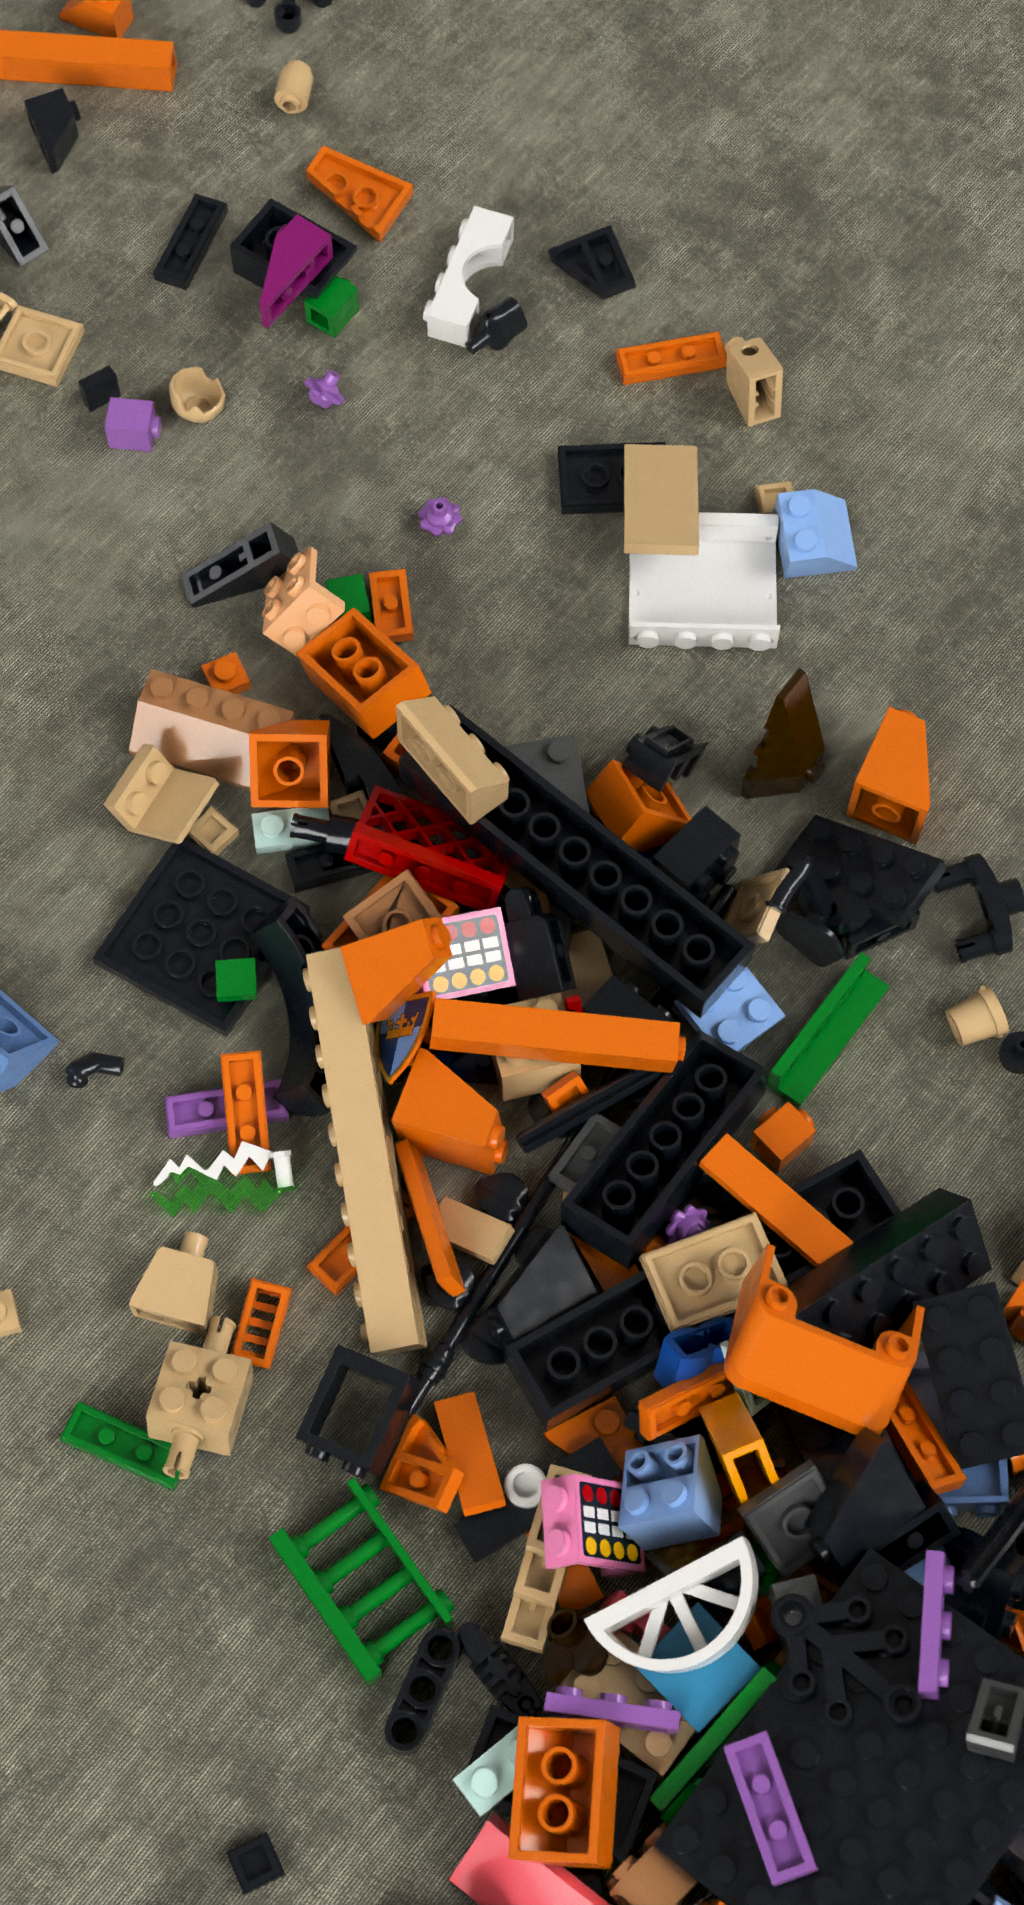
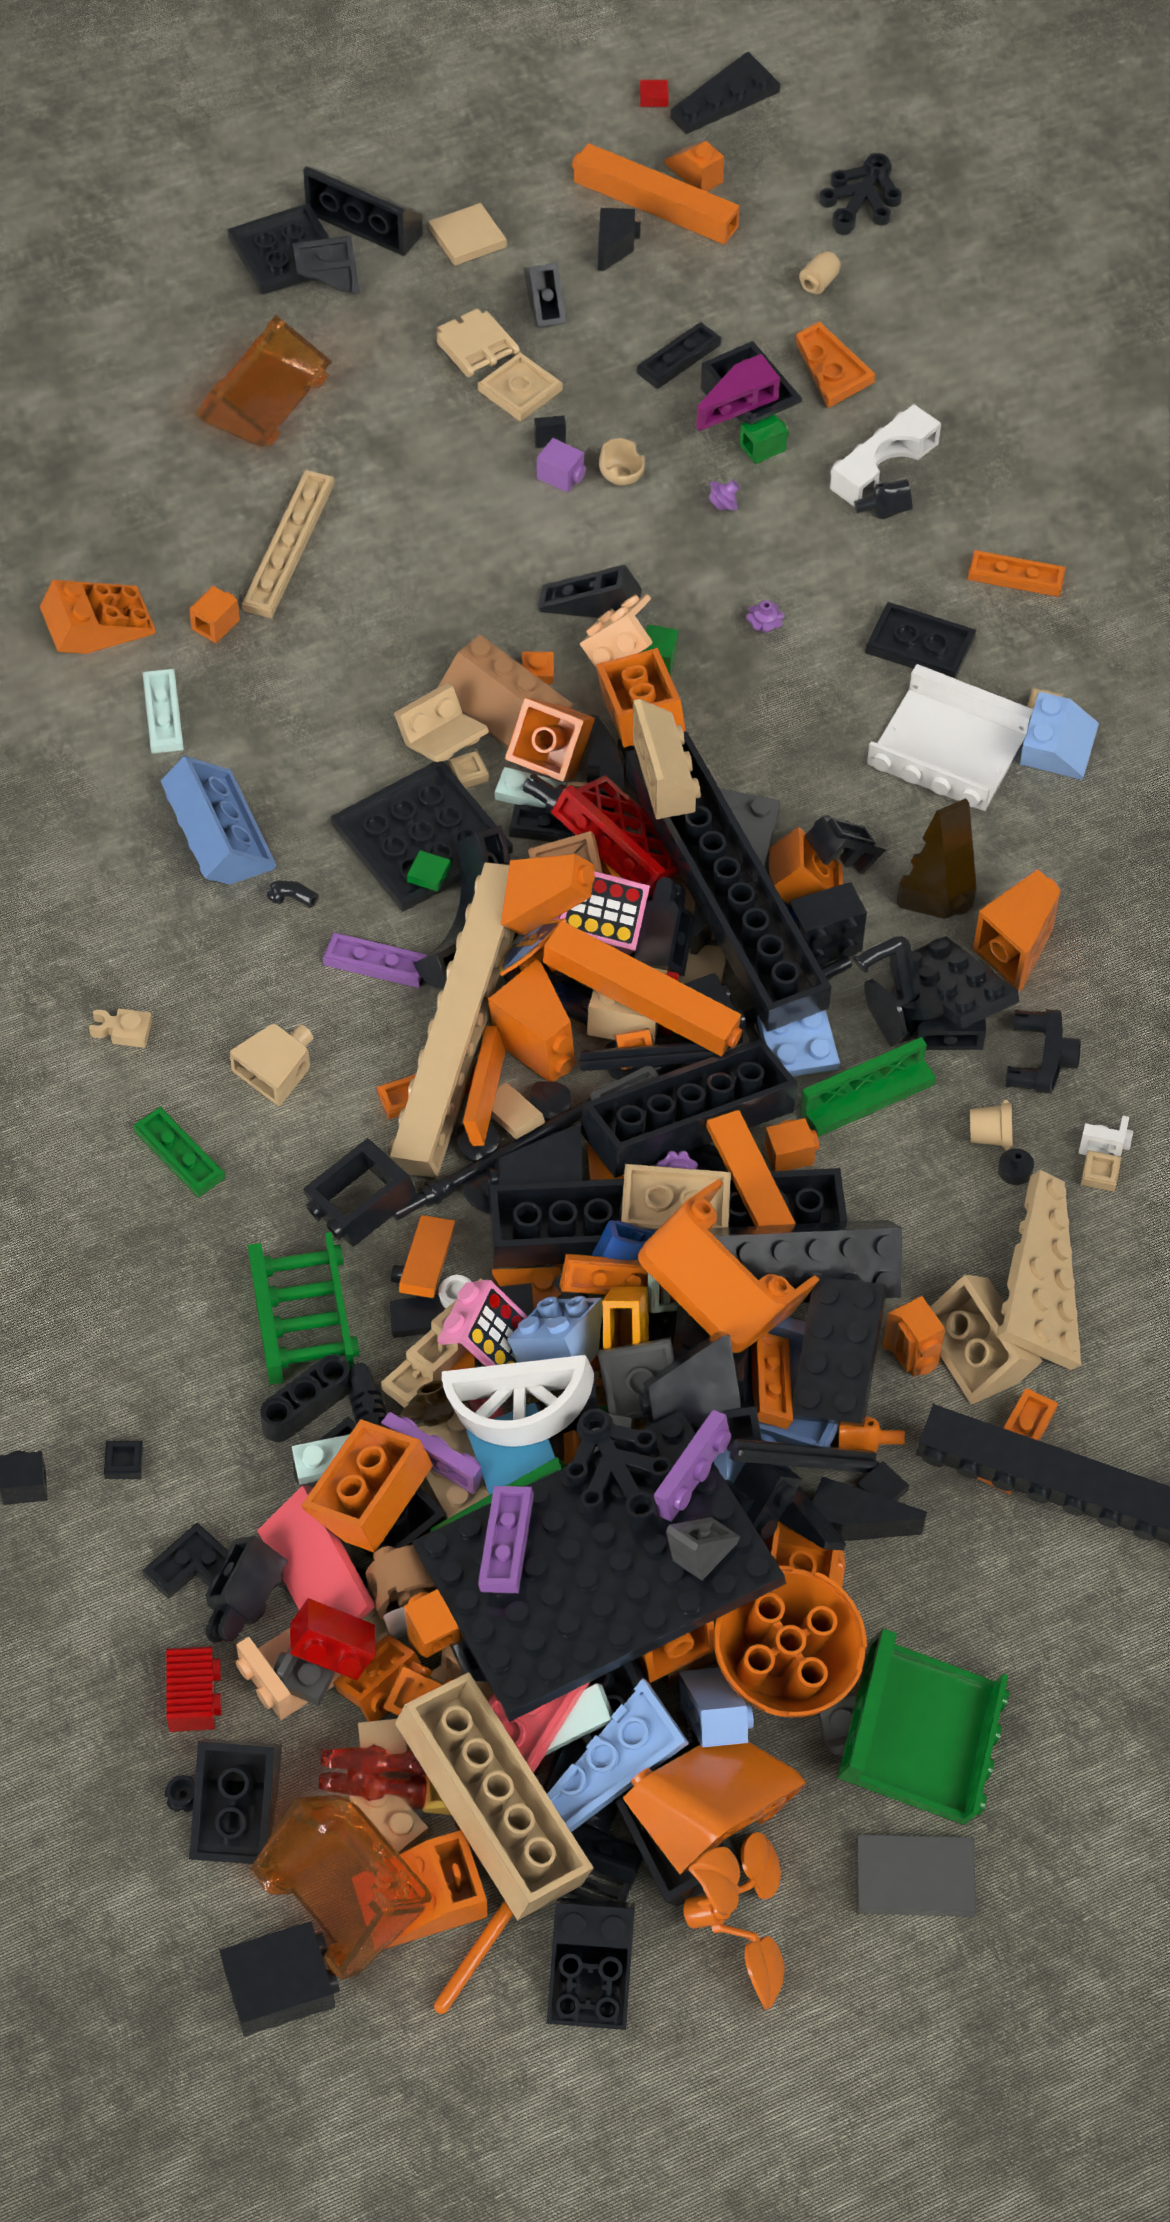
camera: 25 degrees right, 10 degrees down
(203, 1373) = (248, 1135): tan brick -> none
(209, 1182) = (335, 1000): piece -> none
(245, 1104) = (387, 964): orange tile -> none
(259, 1286) = (322, 1094): orange slope -> none
(391, 604) = (692, 664): orange plate -> none
(422, 1469) = (386, 1251): orange wing -> none
(595, 263) = (993, 482): black wing -> none
(661, 500) = (943, 663): tan tile -> none
(748, 908) = (855, 978): tan tile -> none
(752, 366) = (1073, 598): tan torso -> none

